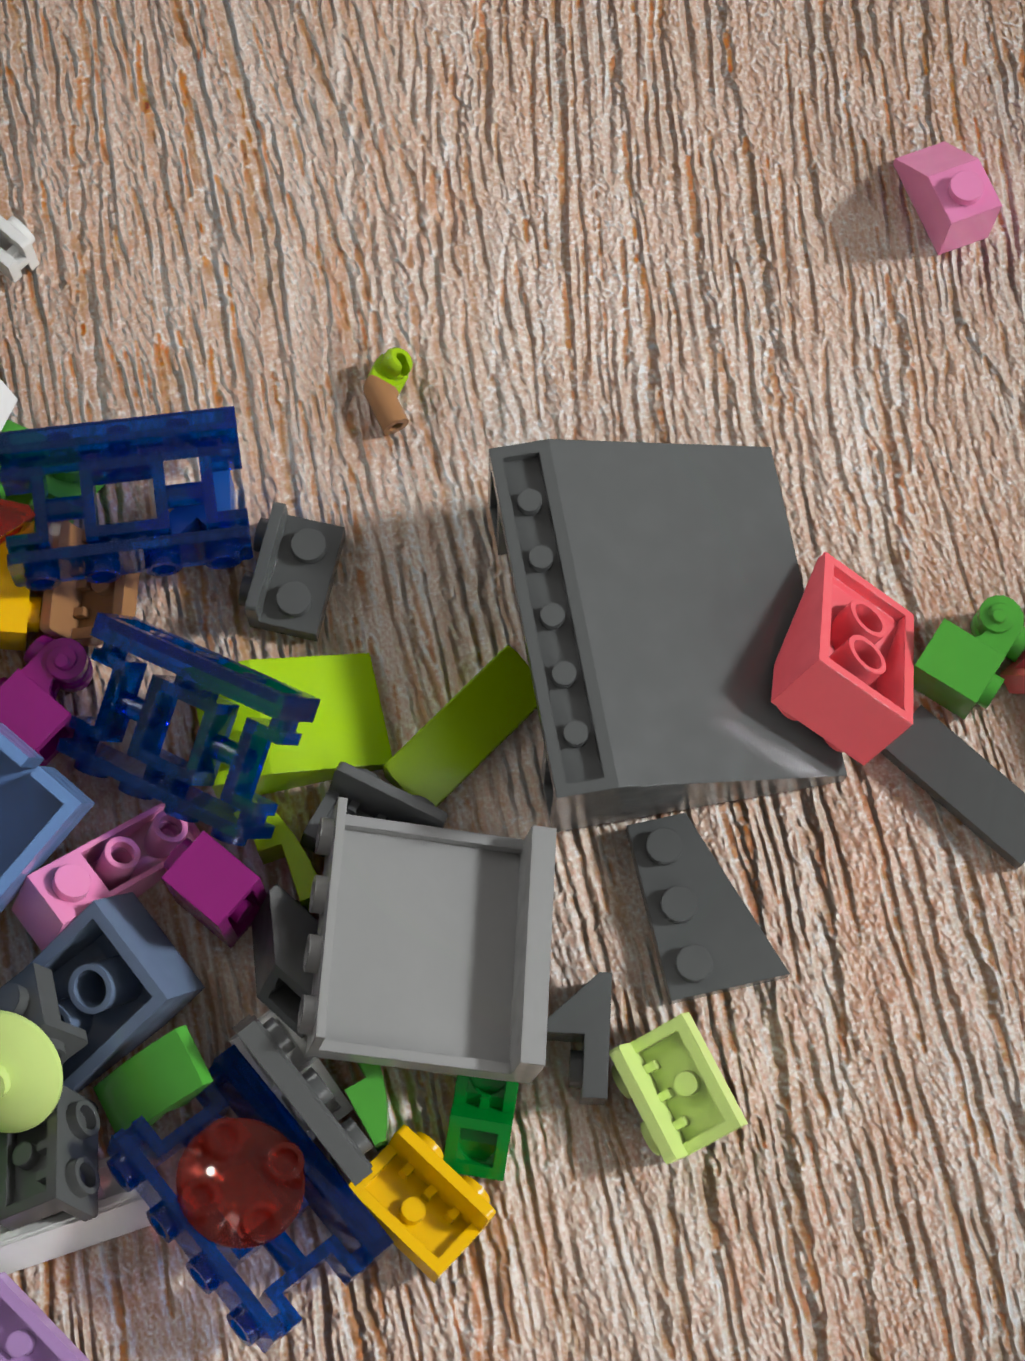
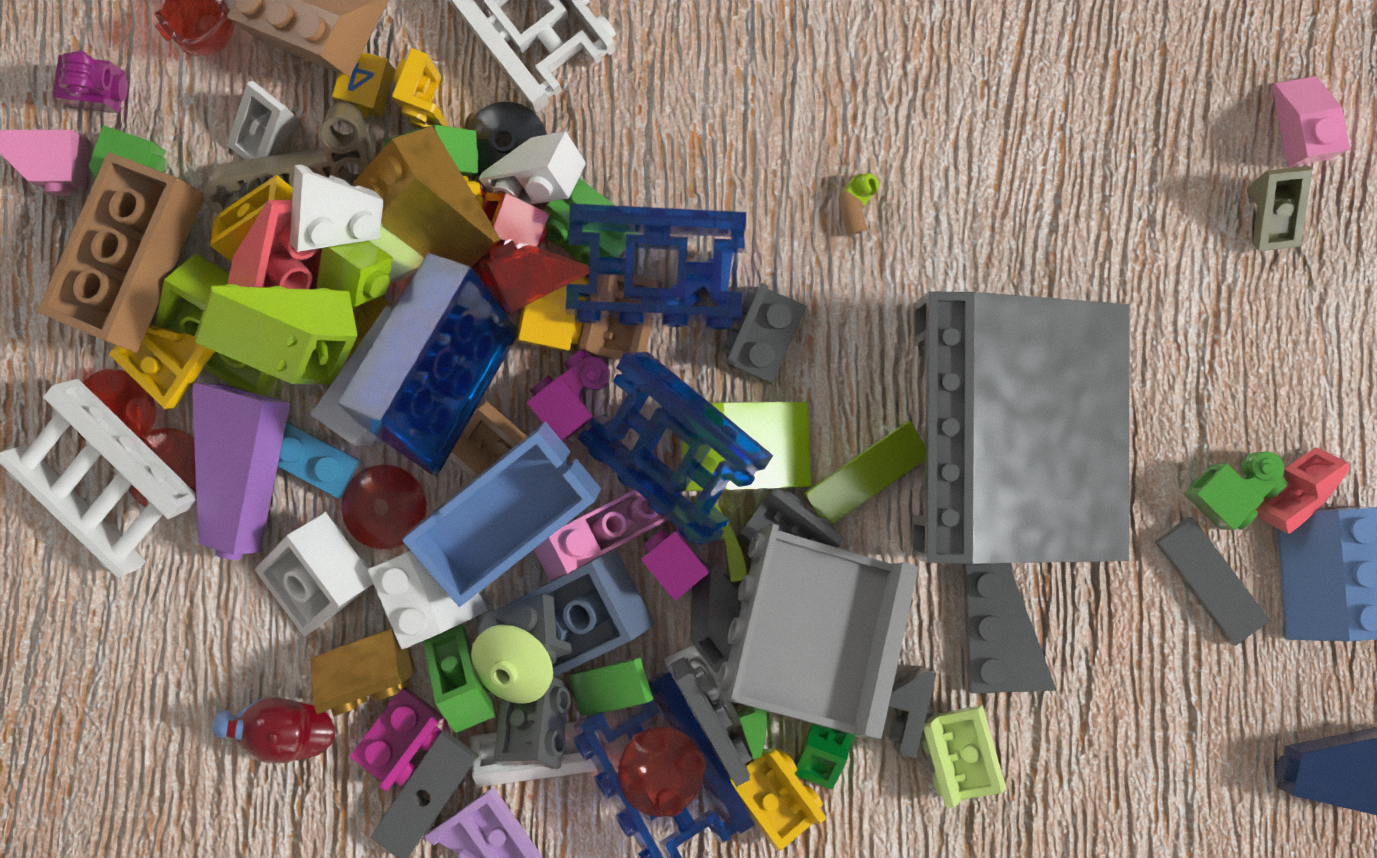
camera: 15 degrees right, 15 degrees up
(847, 663) = (1150, 484): coral slope -> none
(936, 291) = (1281, 207): none -> olive slope

